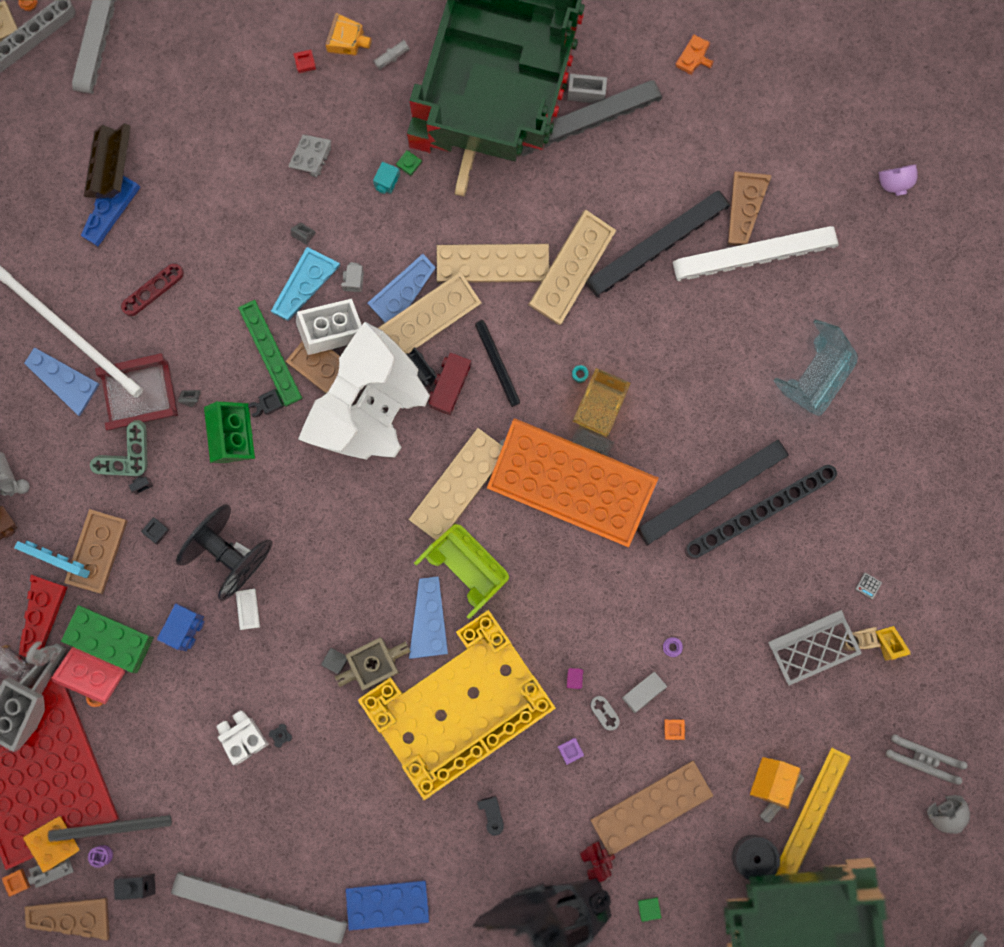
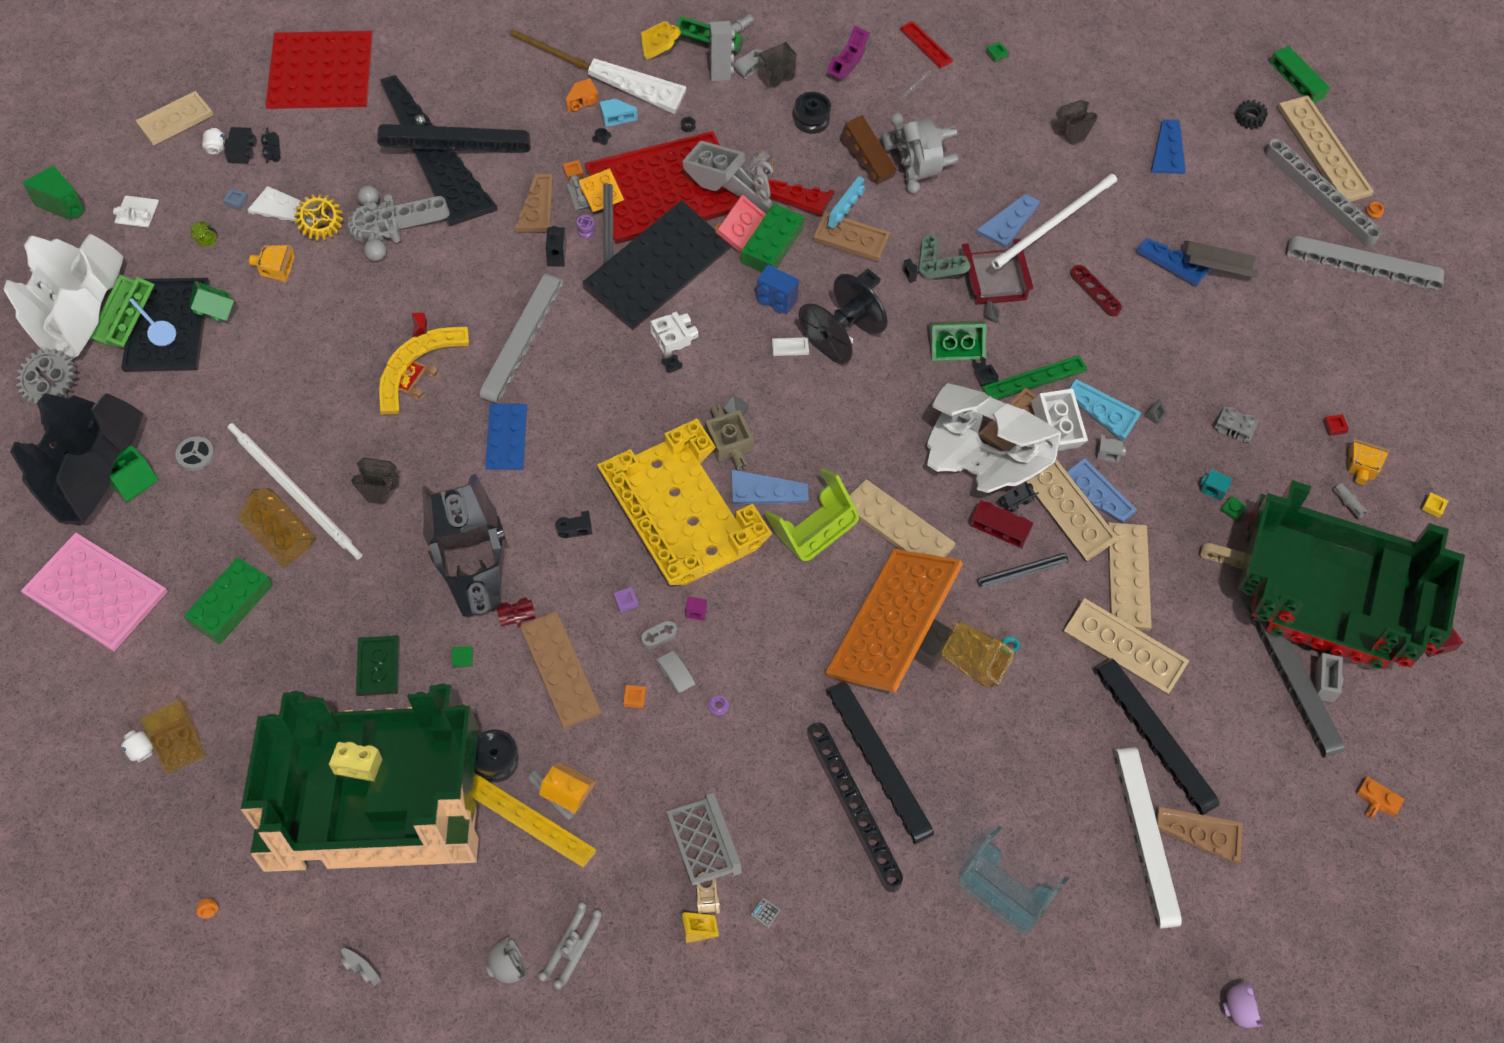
camera: 90 degrees right, 20 degrees down
(150, 767) = (656, 265): none -> black plate

